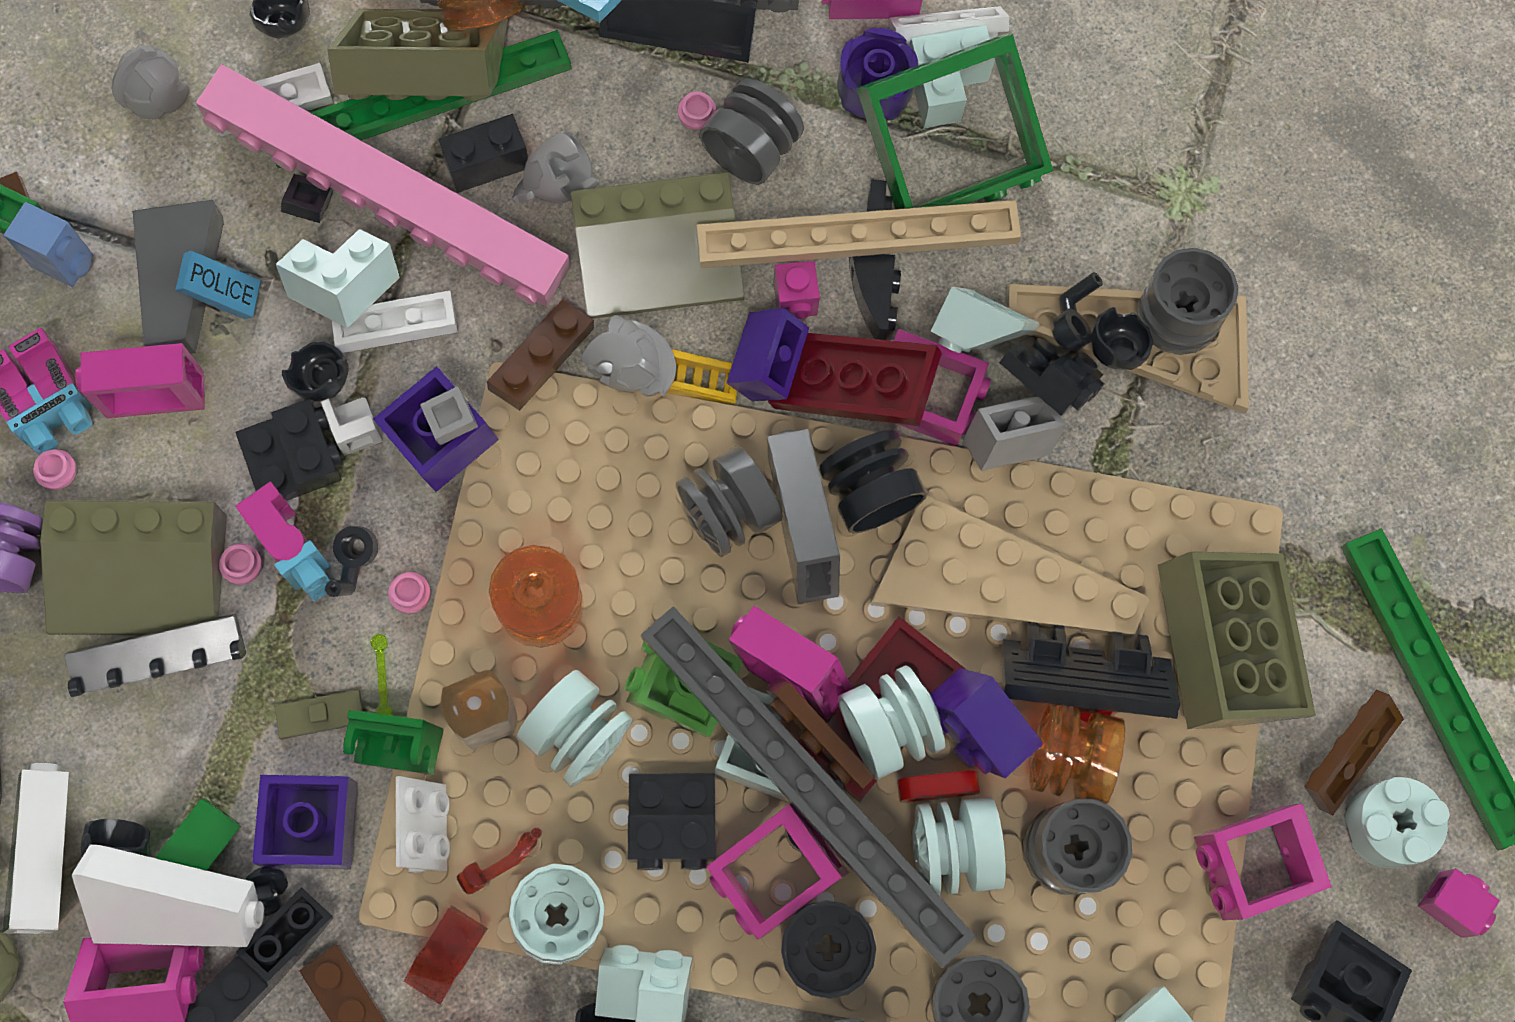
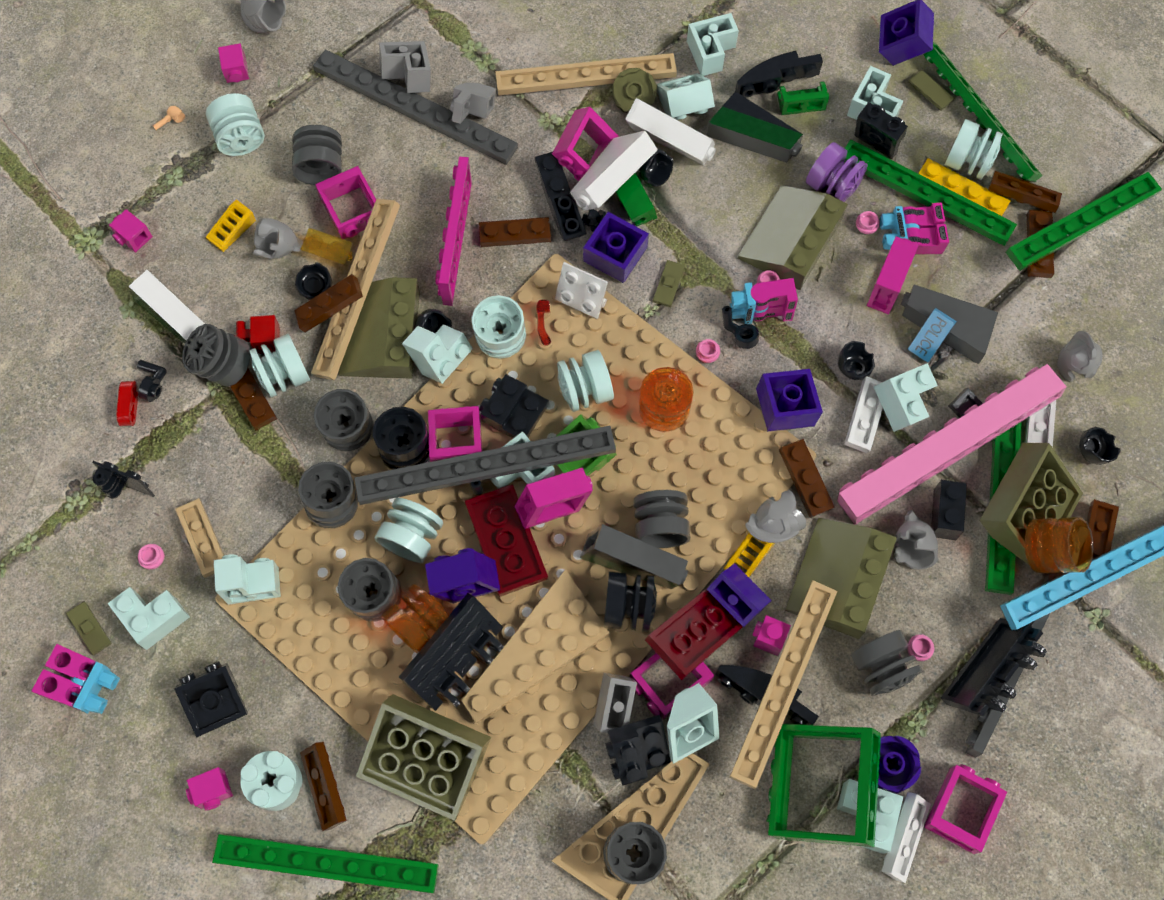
camera: 125 degrees right, 5 degrees down
(49, 244) = (996, 265): medium blue brick -> none
(154, 654) = (741, 224): hinge -> none
(291, 451) = (817, 331): black plate -> none
(352, 425) = (820, 364): white panel -> none
(379, 644) = (689, 326): clear neon green hinge -> none
(392, 742) = (633, 304): green hinge -> none
(445, 954) = (516, 280): clear red slope -> none
(449, 415) = (787, 398): light grey plate -> none
(478, 709) = (621, 342): clear orange piece -> none
(817, 734) = (504, 489): reddish brown plate -> none
(898, 719) = (490, 526): light aqua wheel -> none
(938, 786) = (448, 540): red beam -> none
(1070, 327) = (662, 782): black plate -> none
(1121, 340) = (634, 801): black hair -> none
(1297, 849) = (323, 692): dark pink window -> none

